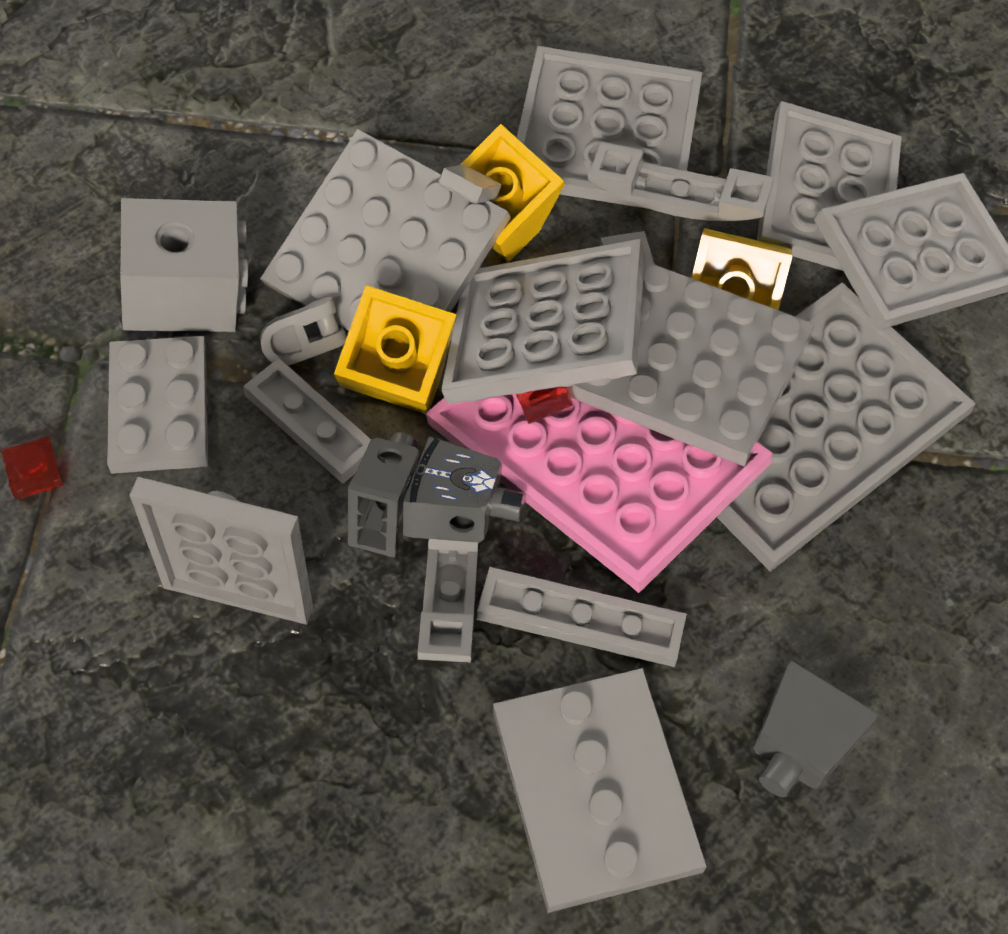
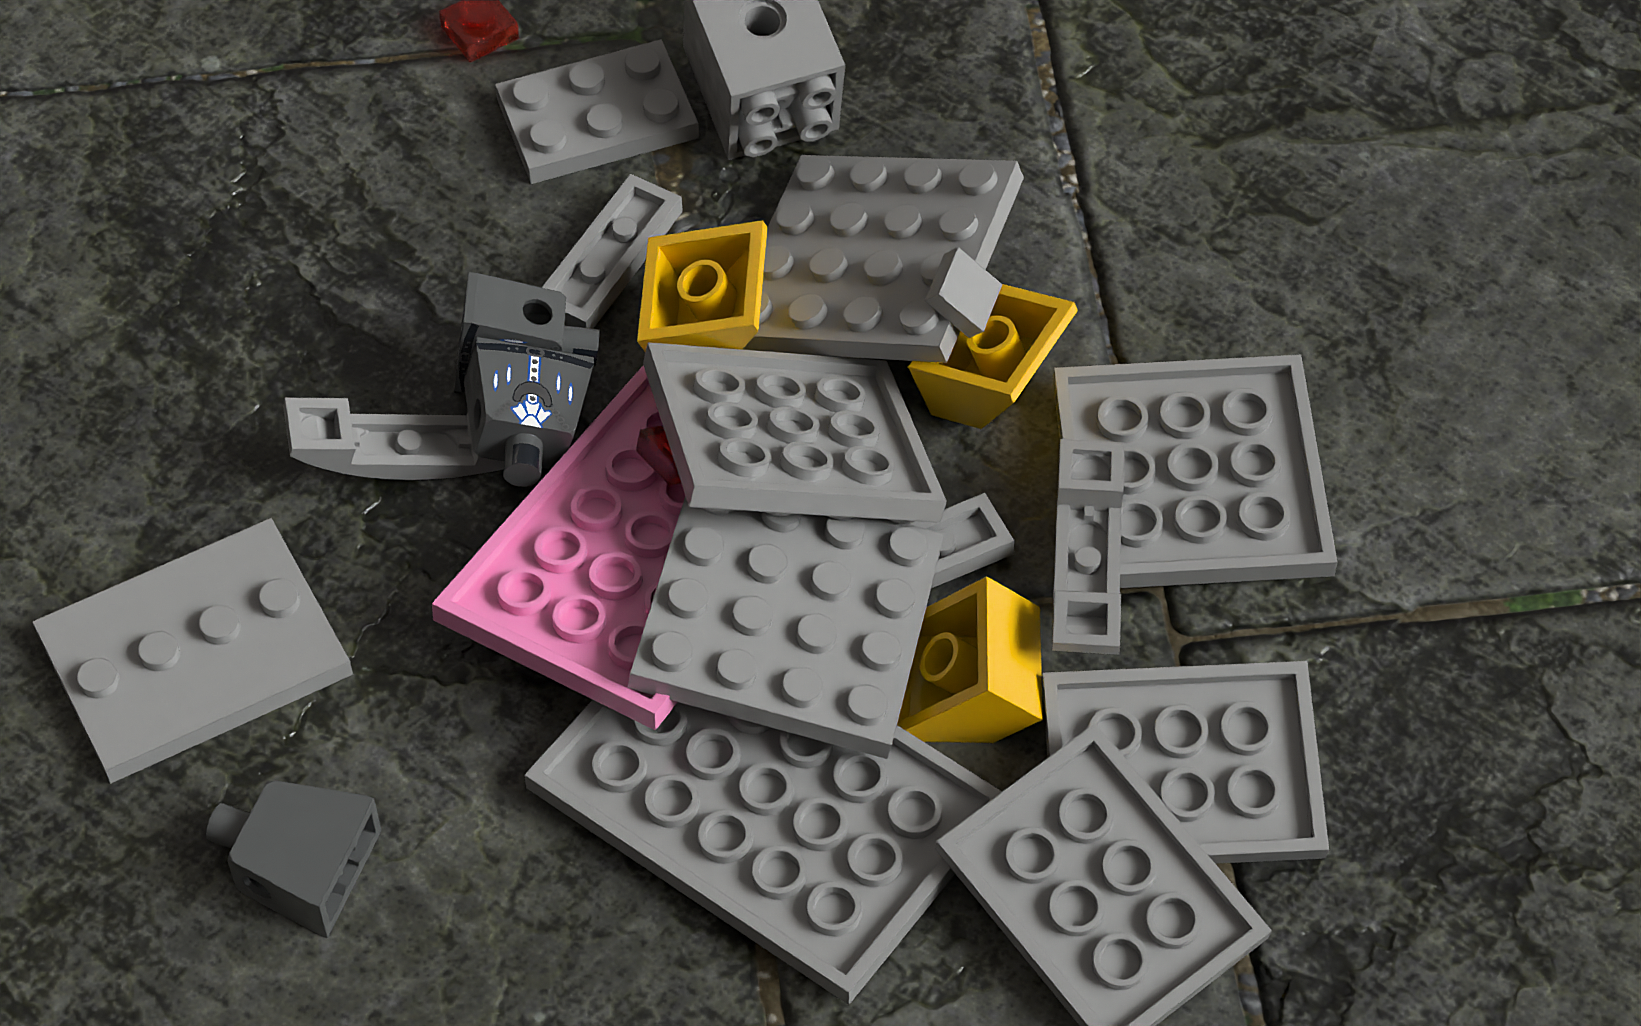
camera: 80 degrees right, 5 degrees down
(224, 549) = (351, 179): light grey plate -> none
(287, 339) = (716, 197): light grey plate -> none
(581, 616) = (405, 586): light grey plate -> none

